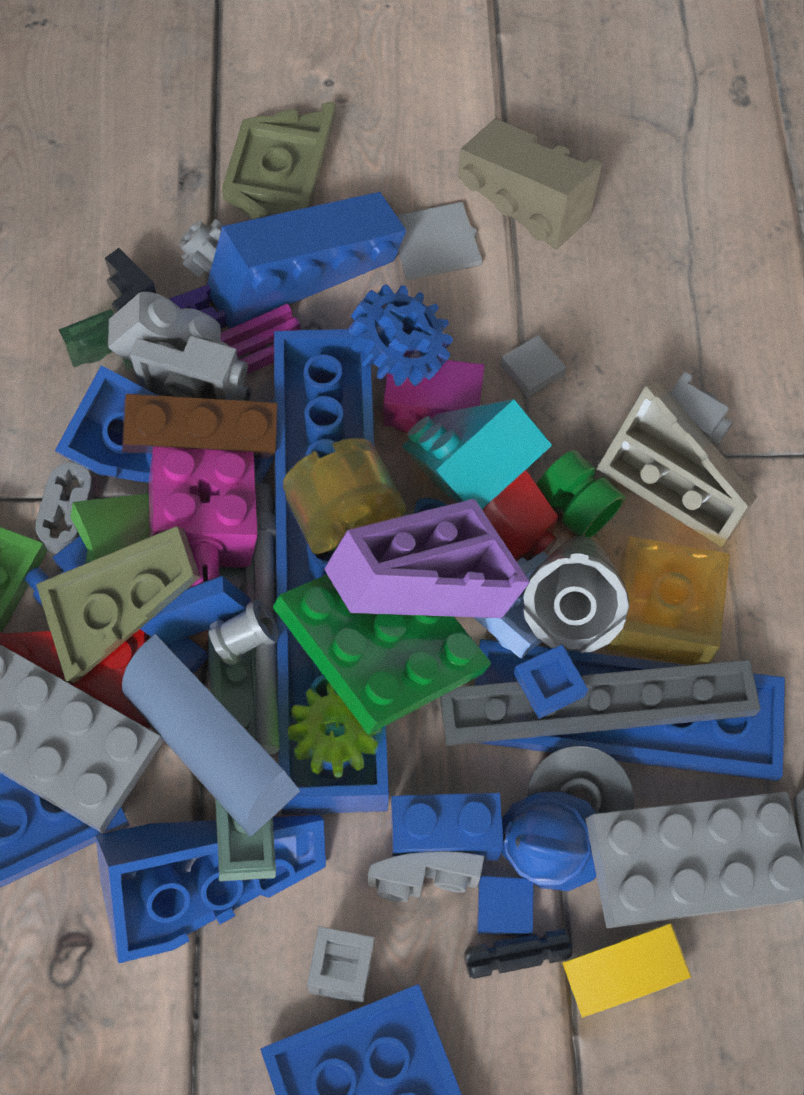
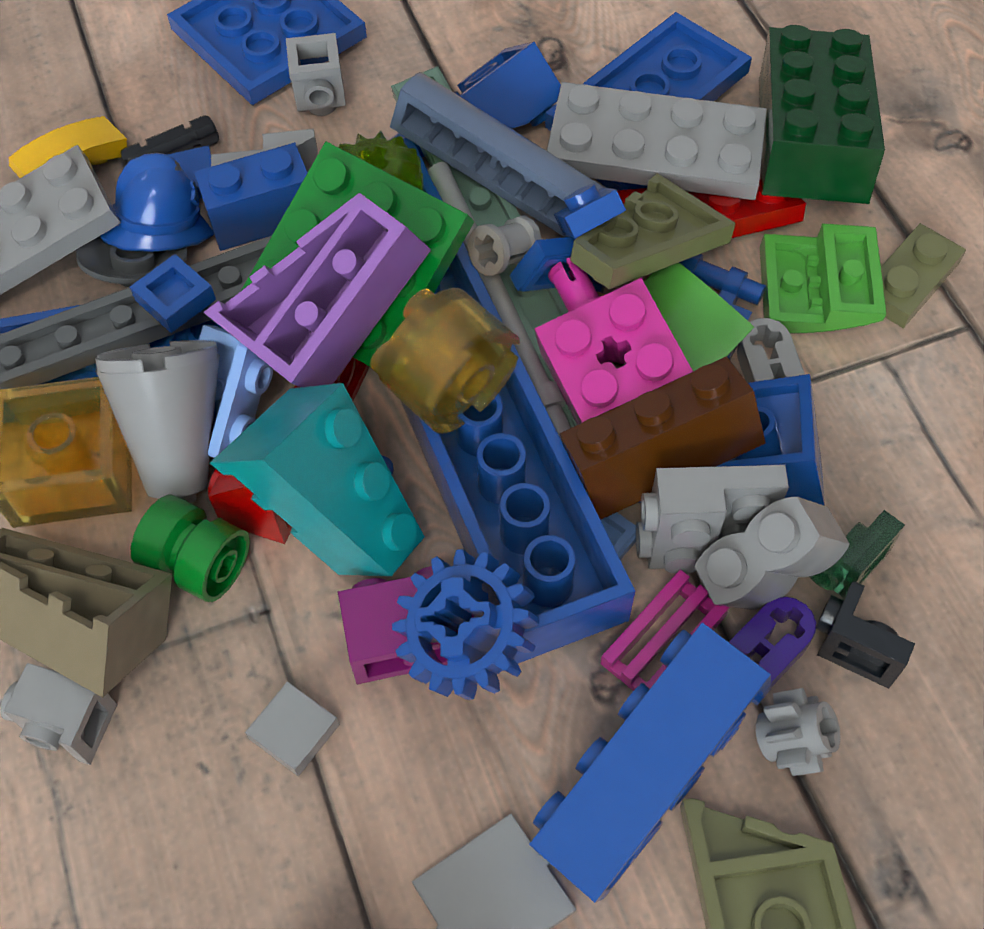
camera: 165 degrees right, 5 degrees down
(163, 609) = (588, 209): none -> blue plate

